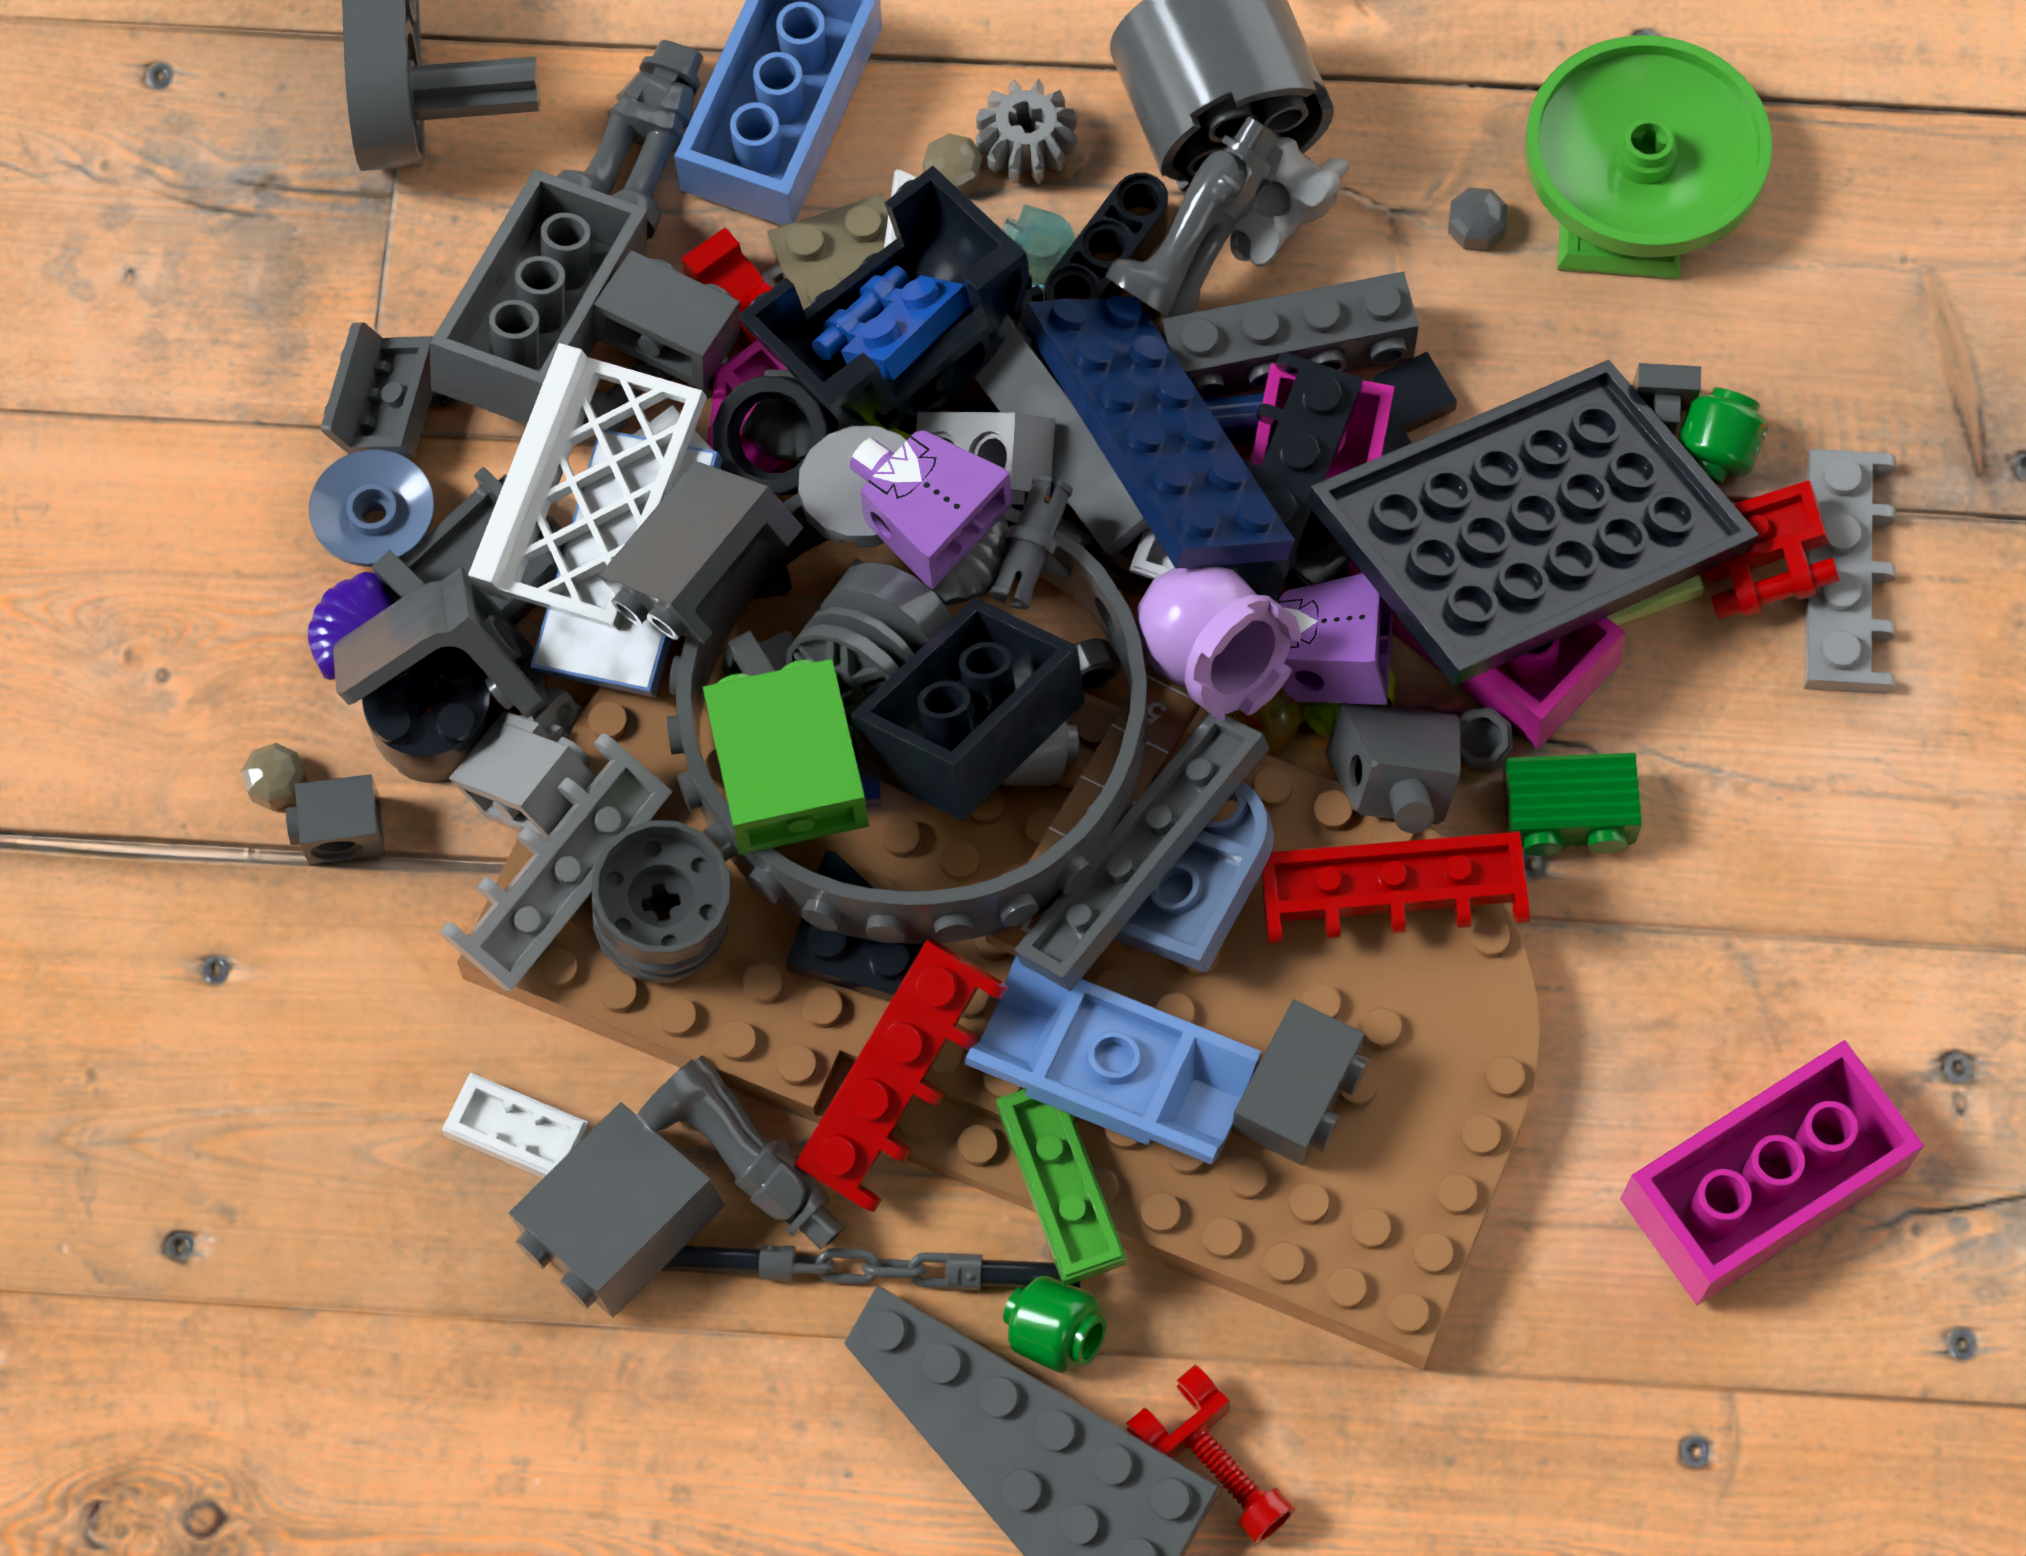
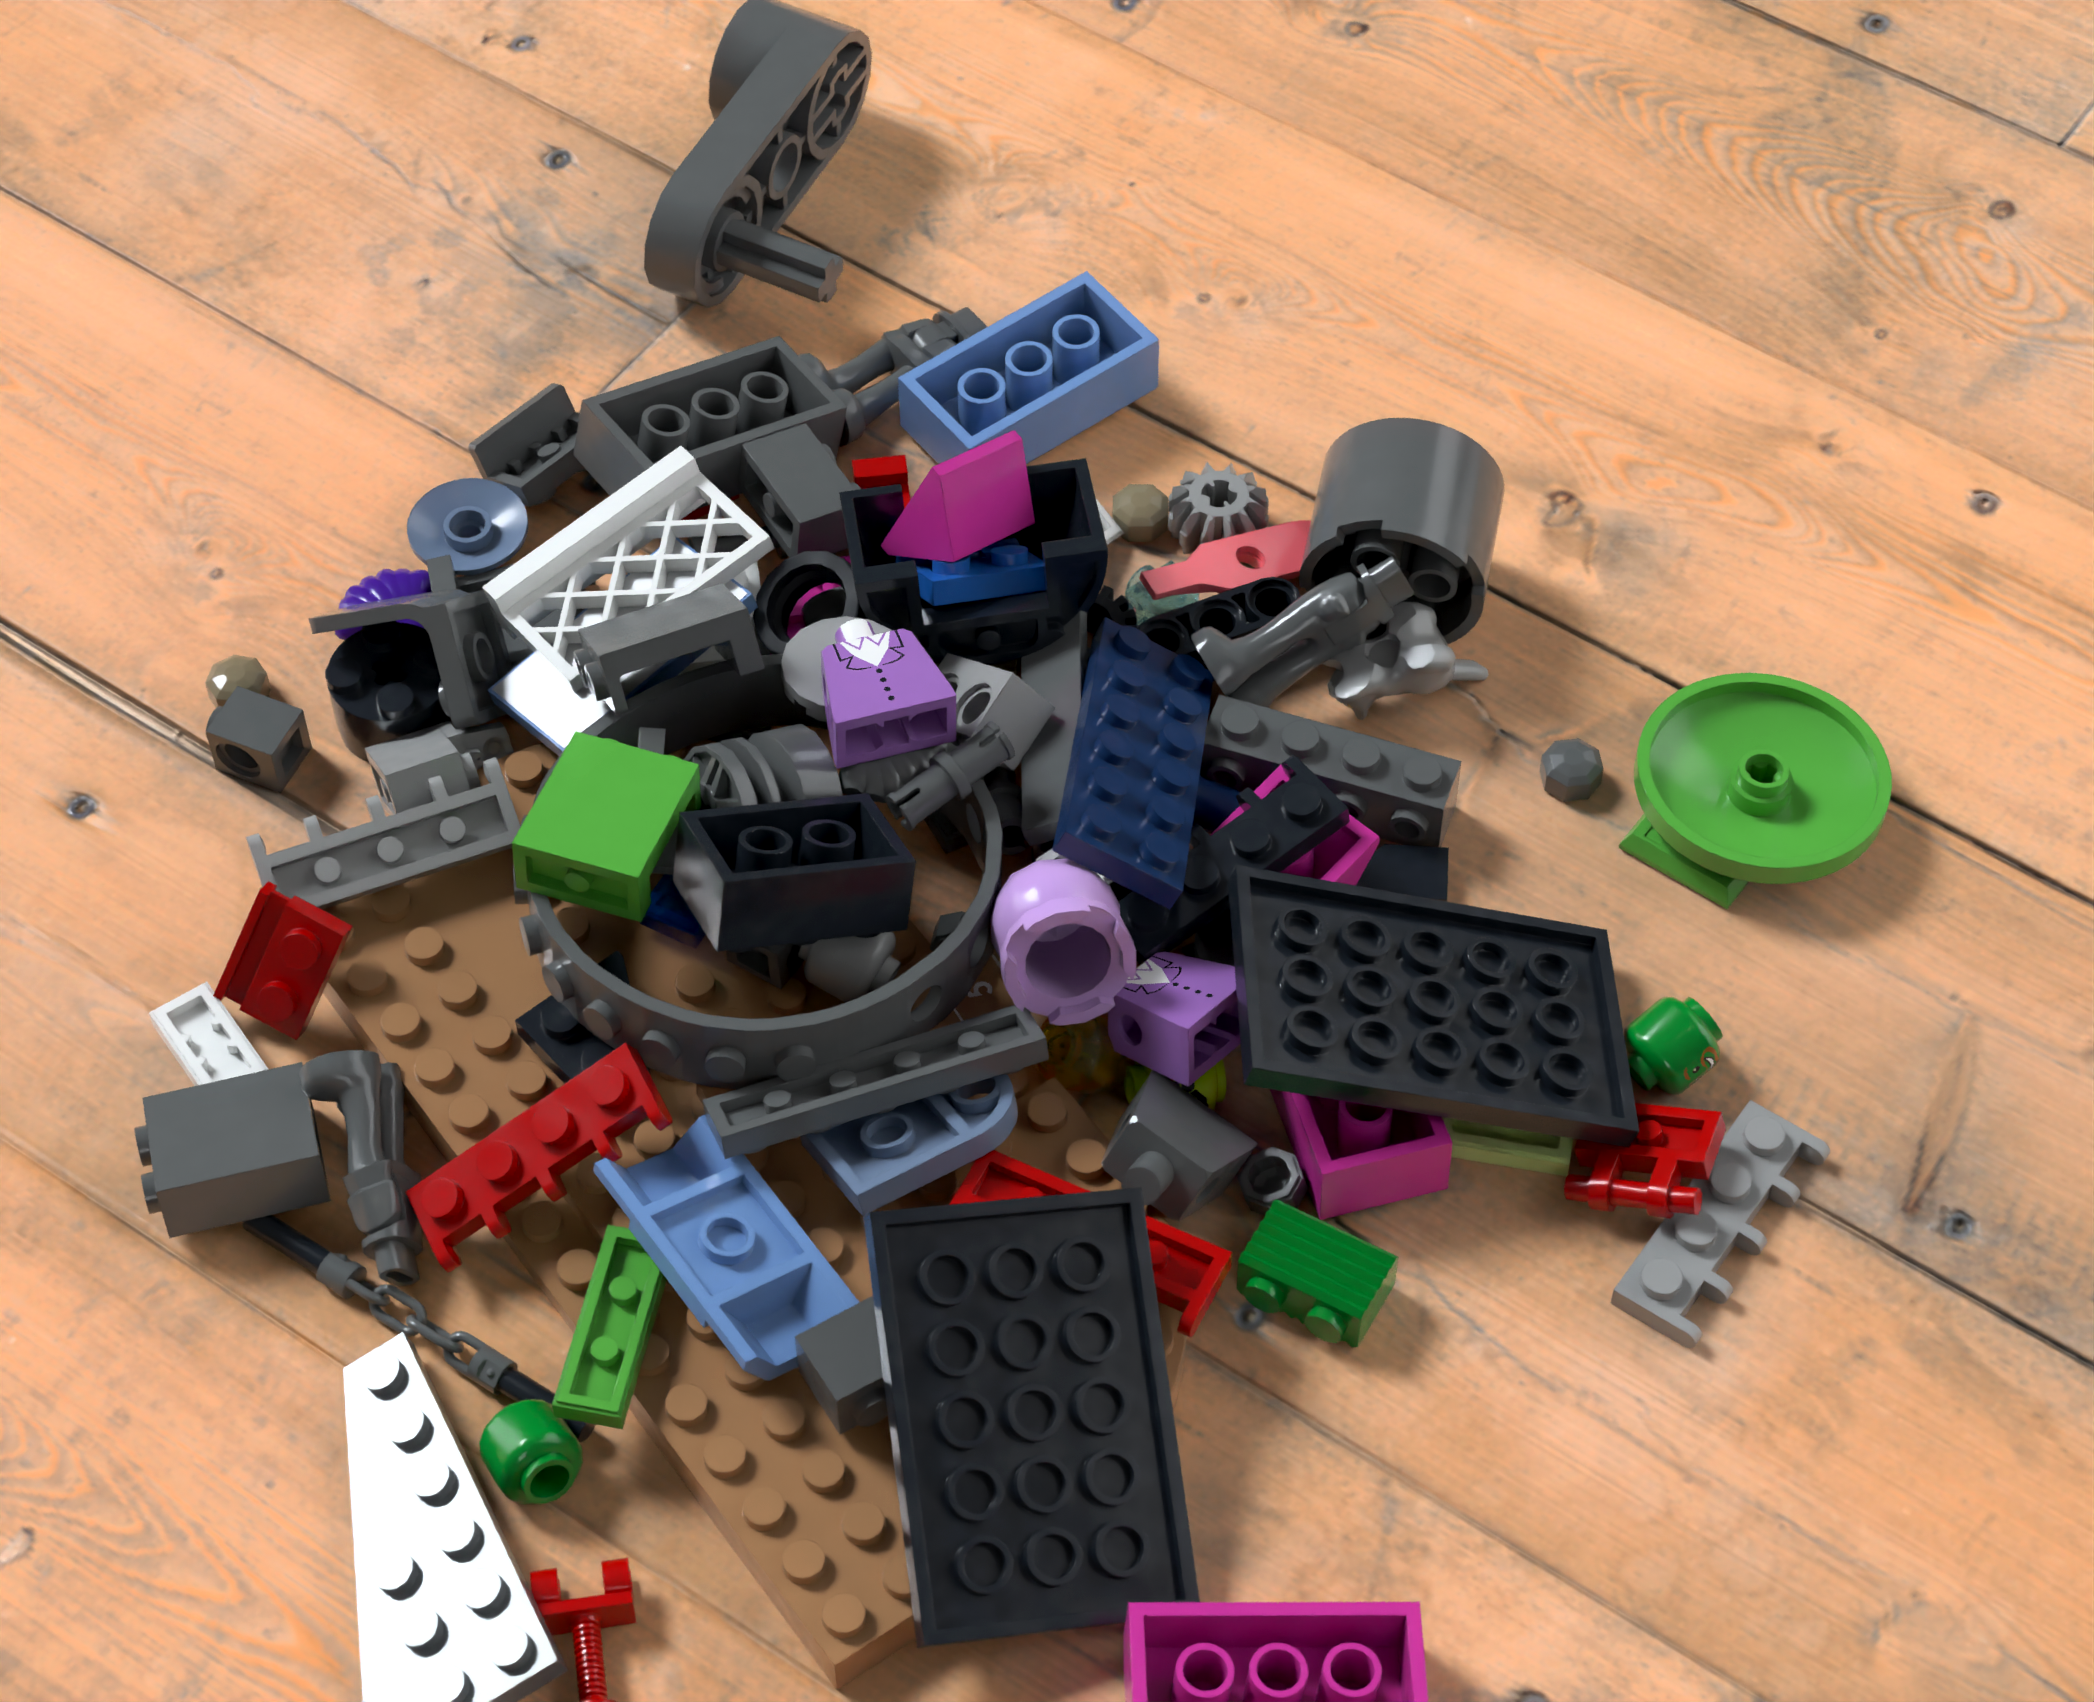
camera: 30 degrees right, 15 degrees down
(538, 1020) = (283, 960): none -> red plate
(668, 866) = (439, 907): dark grey wheel -> none
(861, 274) = (966, 504): none -> dark pink slope
(1106, 145) = (1217, 565): none -> coral piece
(1457, 1065) = (1029, 1414): none -> black plate
(1668, 389) = (1643, 980): dark grey tile -> none

